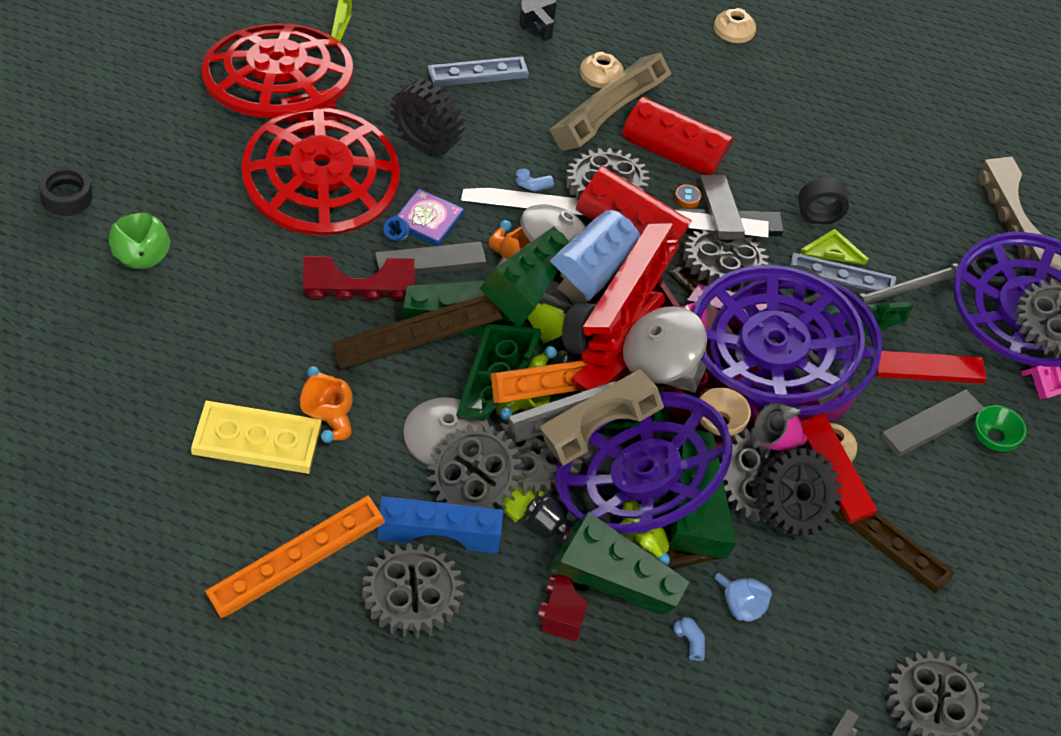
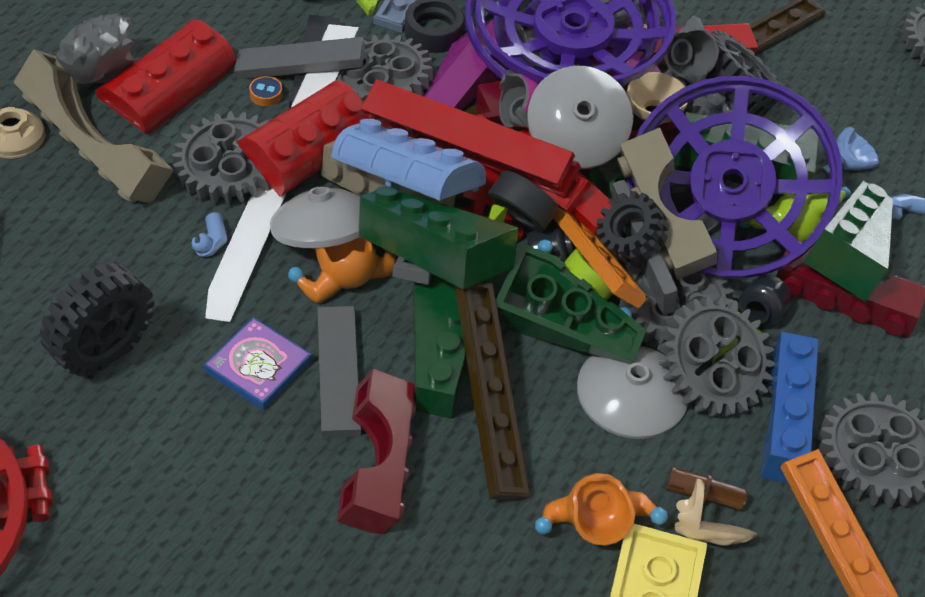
camera: 80 degrees left, 0 degrees up
(320, 178) = (144, 497): red dish -> none
(325, 469) = (709, 532): none -> tan piece
(360, 473) = (715, 491): none -> reddish brown axle
(388, 230) = (293, 394): blue bush -> none
(563, 387) = (645, 239): none -> black tyre
(673, 82) = (97, 49): none -> dark grey head

